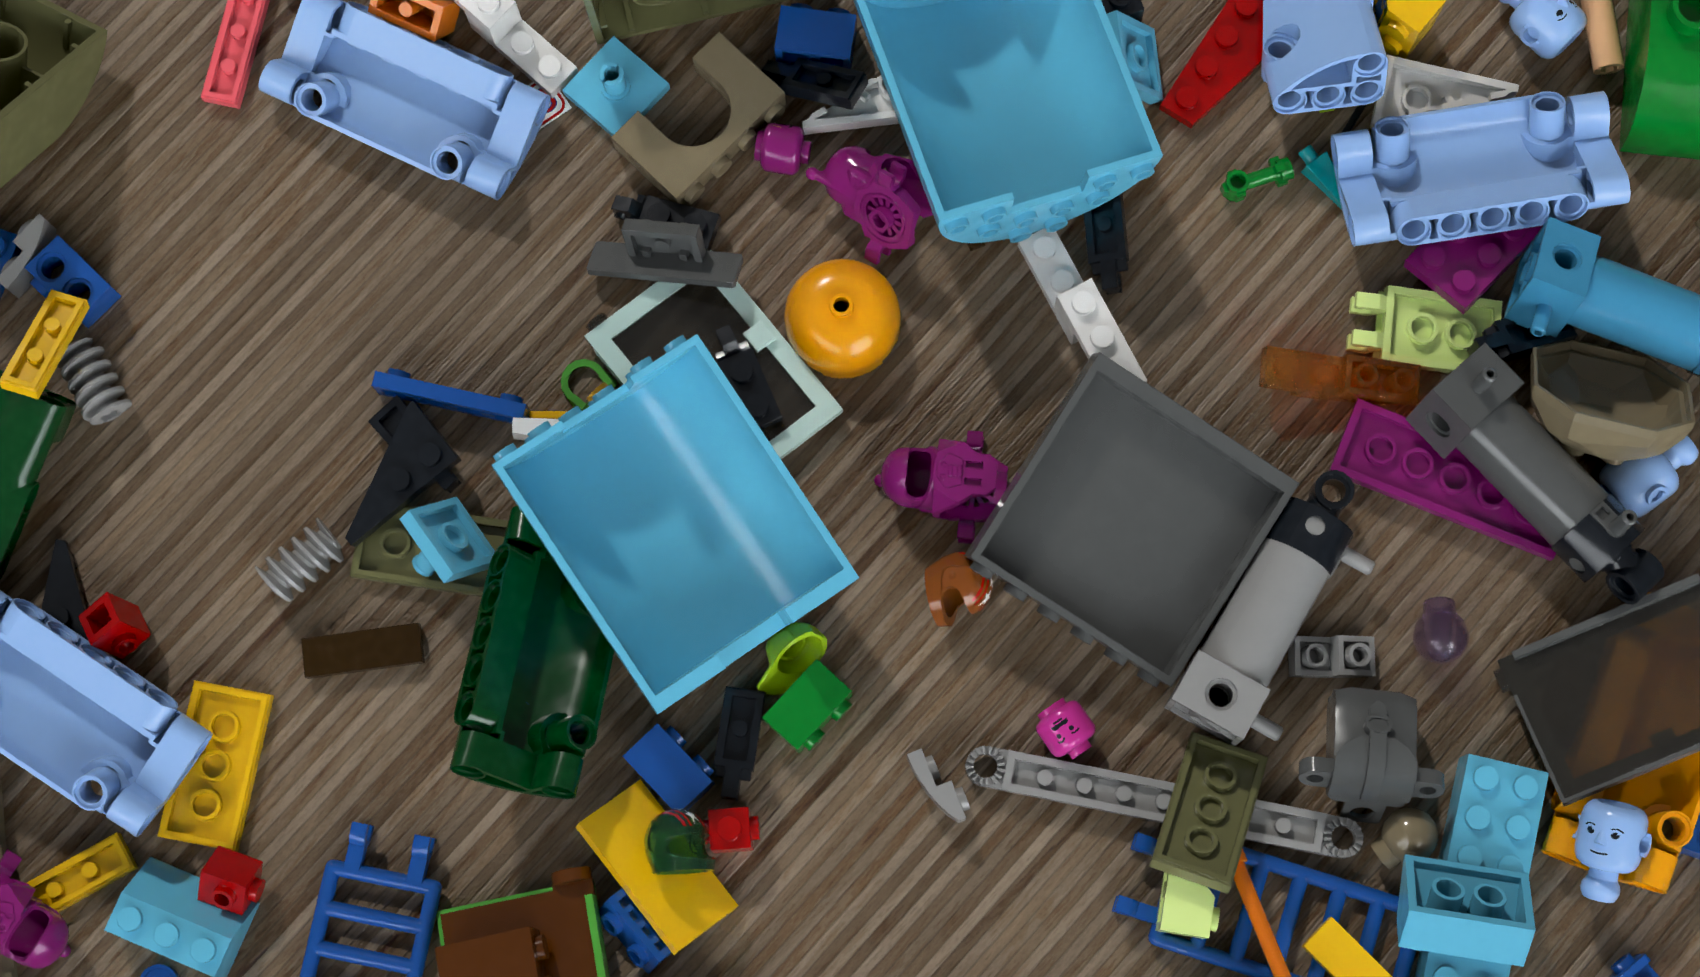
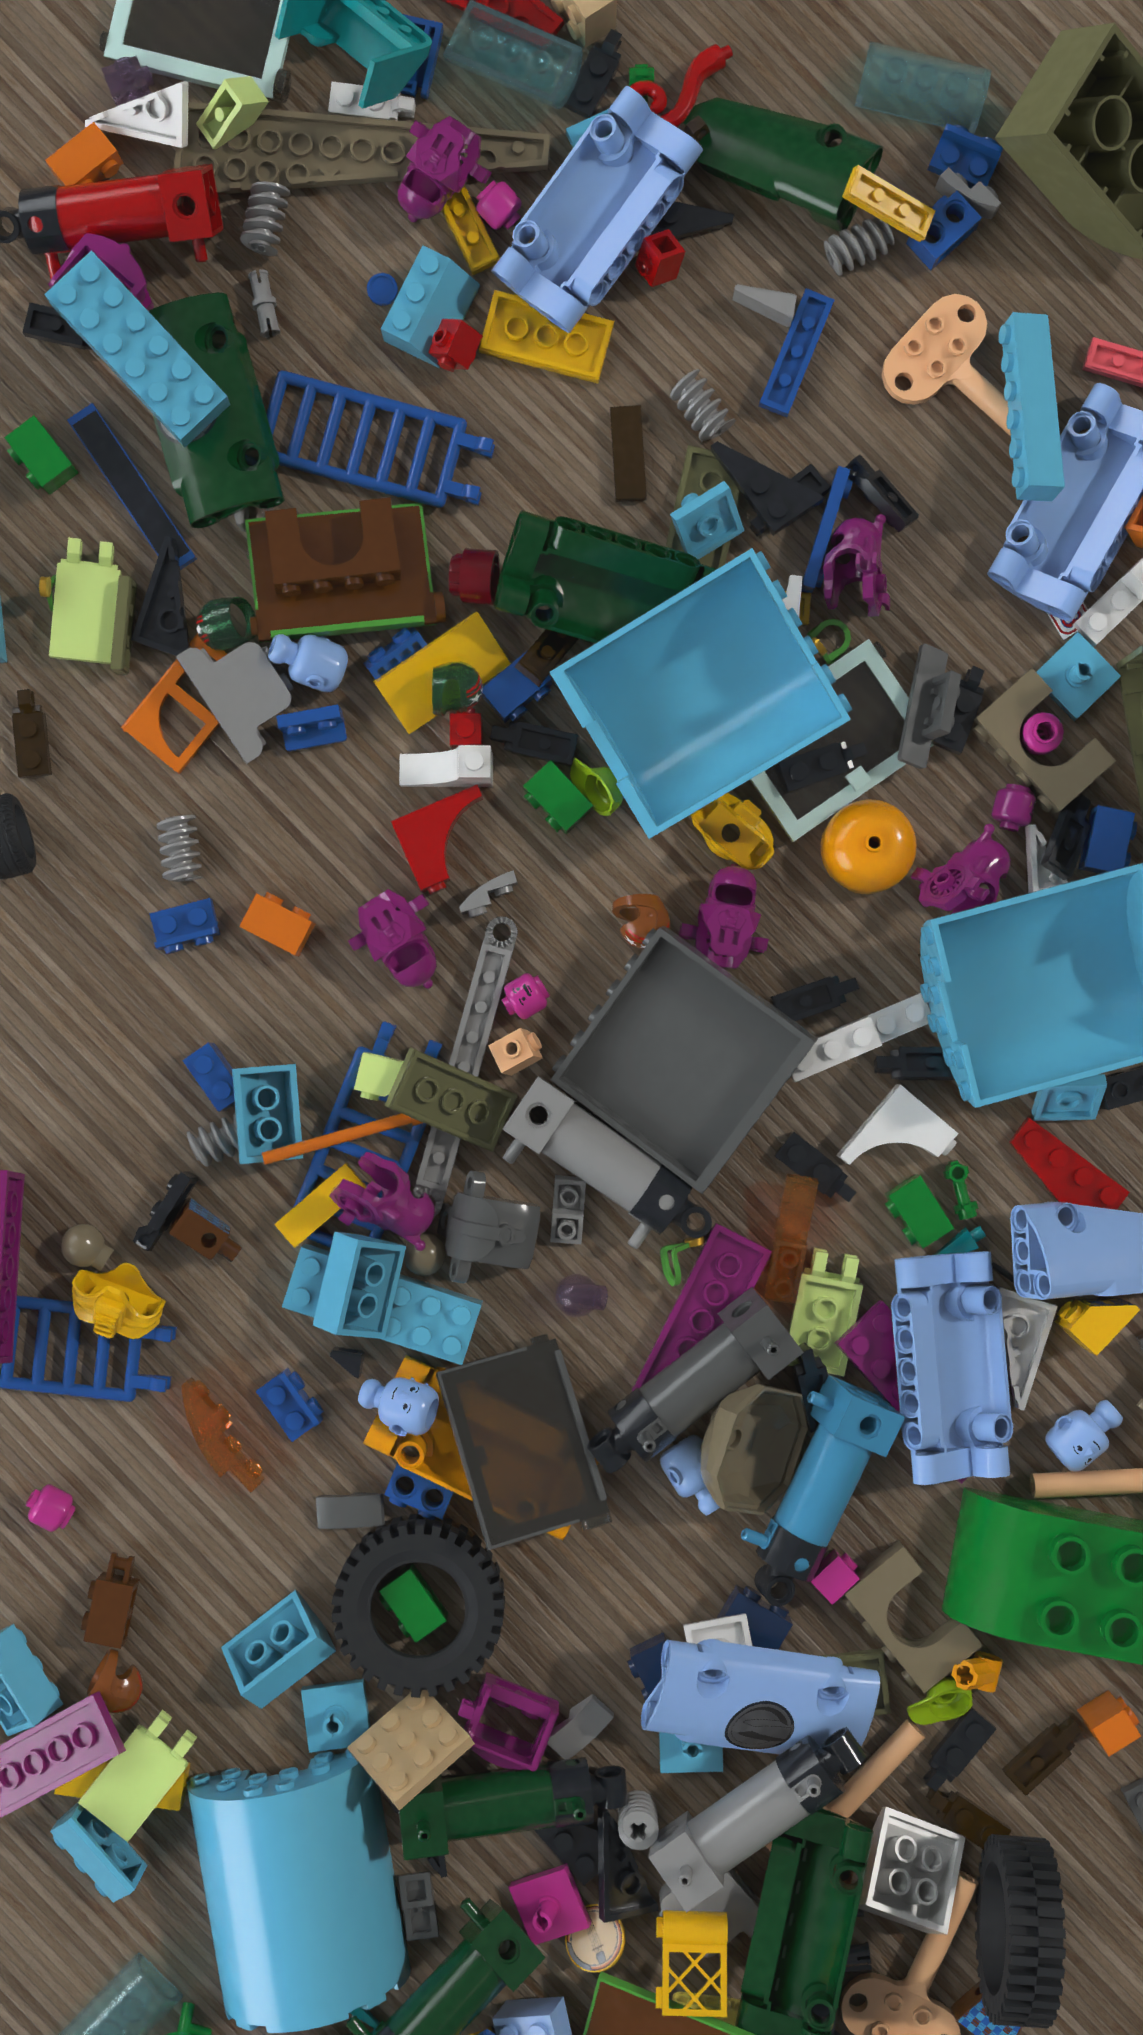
camera: 90 degrees right, 10 degrees up
(48, 837) = (499, 205): none -> dark pink head
(169, 484) = (769, 303): none -> light grey slope
(226, 276) = (939, 354): none -> light nougat piece
(229, 449) = (796, 352): none -> blue plate
(291, 158) = (1031, 407): none -> medium azure brick
(402, 332) = (882, 494): none -> black hinge
(469, 349) = (863, 544): none -> magenta helmet
(530, 832) = (475, 575): none -> dark red piece
(630, 734) = (545, 655): none -> dark brown tile
(690, 120) = (1049, 728): none -> dark pink head
(780, 849) = (452, 768): none -> white arch
(851, 456) = (755, 841): none -> yellow piece
(870, 872) = (426, 836): none -> red arch
(1003, 900) = (397, 937): none -> magenta helmet
(1035, 370) = (814, 997): none -> black hinge
(1142, 747) = (516, 1051): none -> light nougat brick
(1180, 260) = (901, 1120): none -> white arch
(1243, 358) = (809, 1162): none -> black hinge
(1289, 226) = (918, 1211): none -> green brick
(1353, 881) = (397, 1207): none -> magenta helmet
(1365, 512) = (689, 1242): none -> bright green piece
(1555, 923) = (349, 1359): none -> black slope

